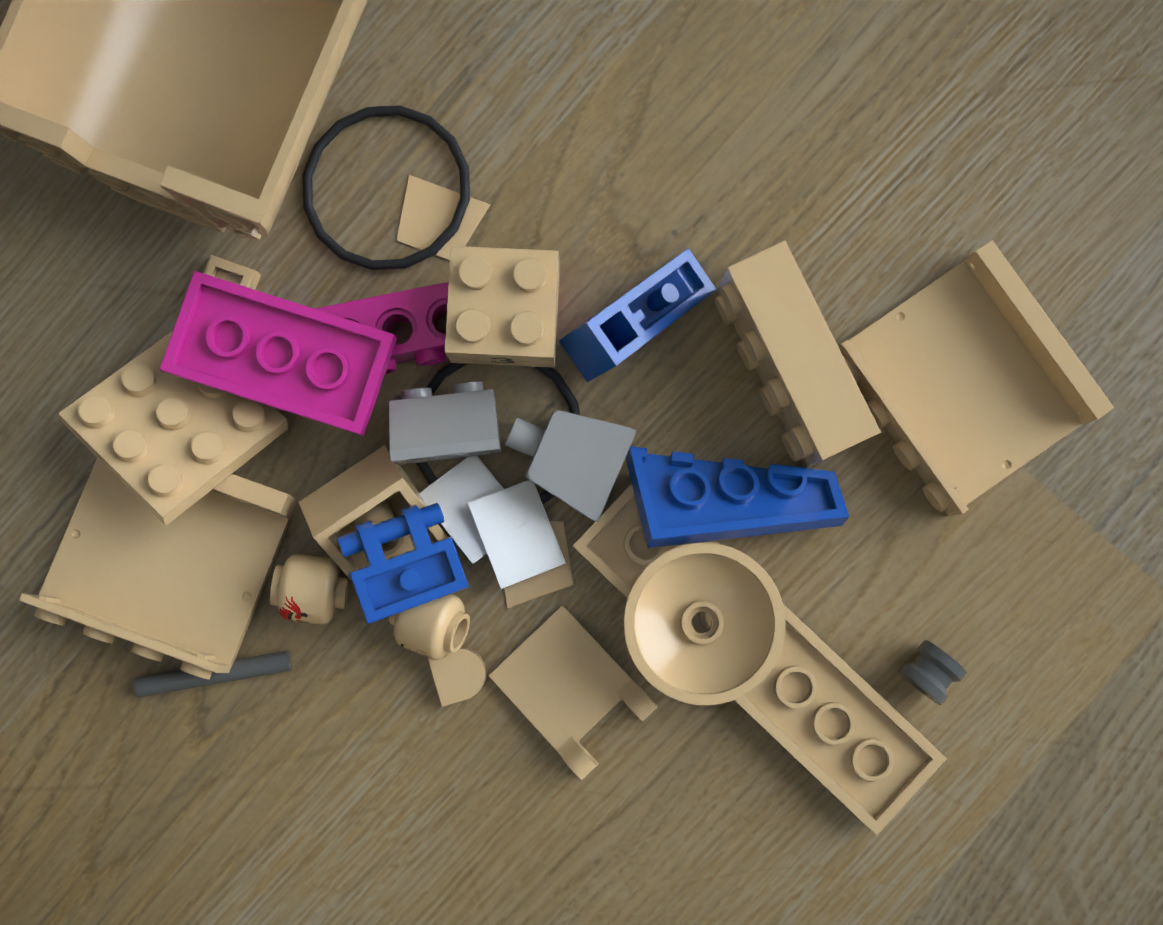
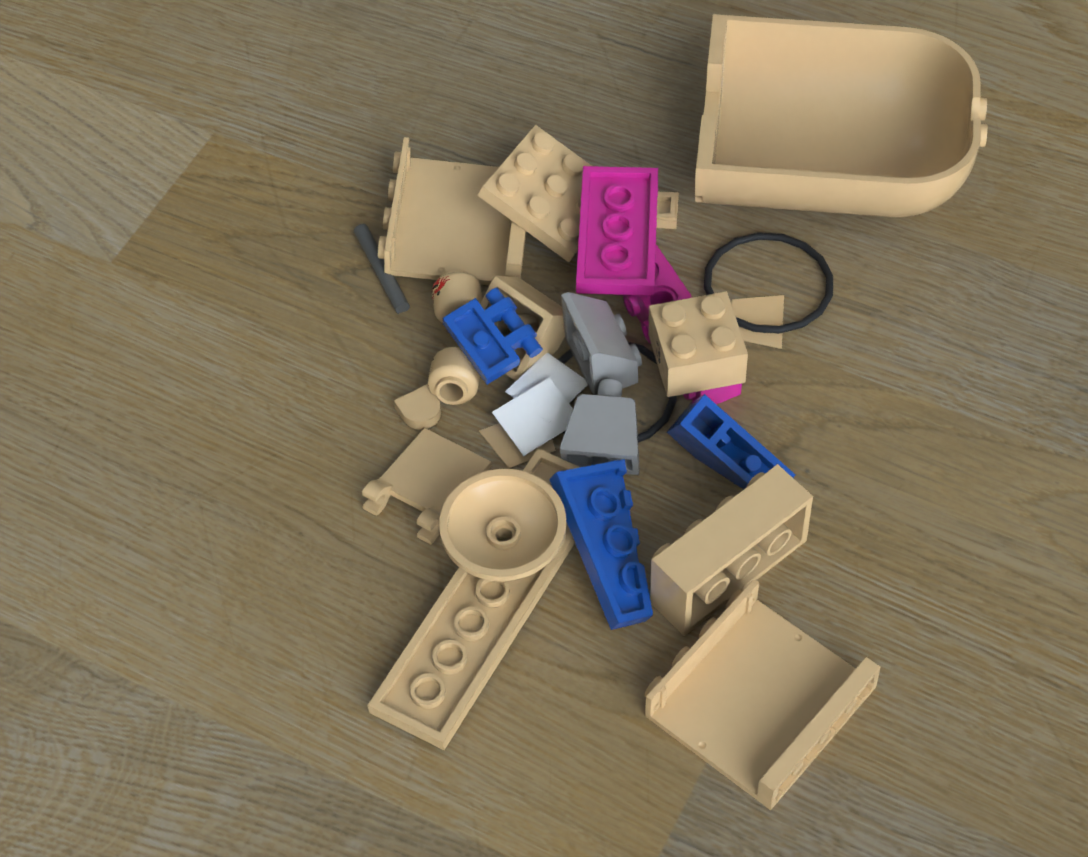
camera: 75 degrees right, 30 degrees down
(932, 672) = (510, 718): dark grey wheel -> none

